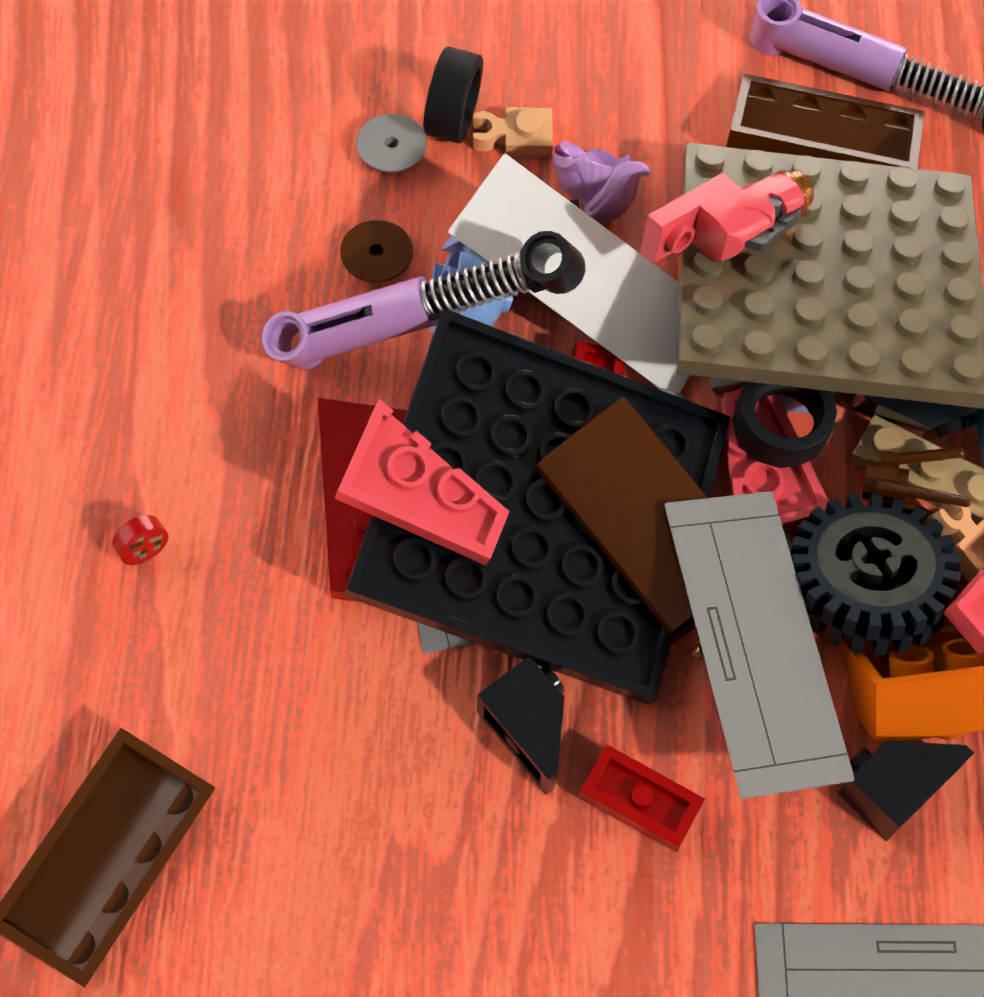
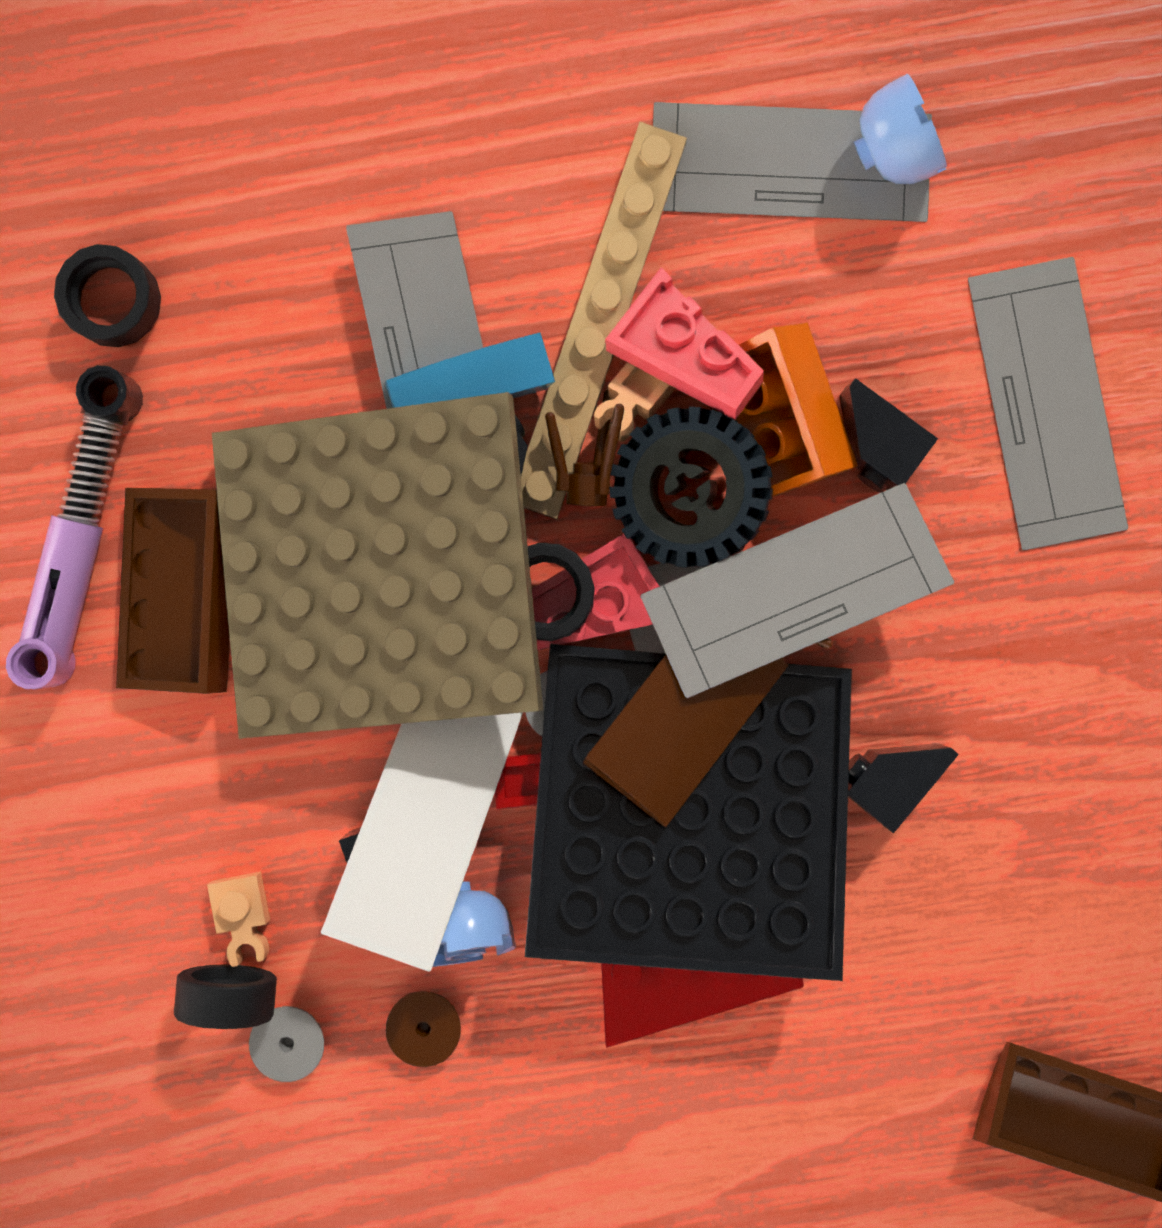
camera: 100 degrees left, 25 degrees up
(140, 539) = (792, 1177): red tile -> none
(415, 489) = (734, 940): coral wing -> none
(417, 303) = (511, 976): piece -> none
(598, 180) = (291, 823): lavender hair -> none
(641, 797) = (941, 666): red plate -> none
(728, 218) = (362, 682): coral plate -> none

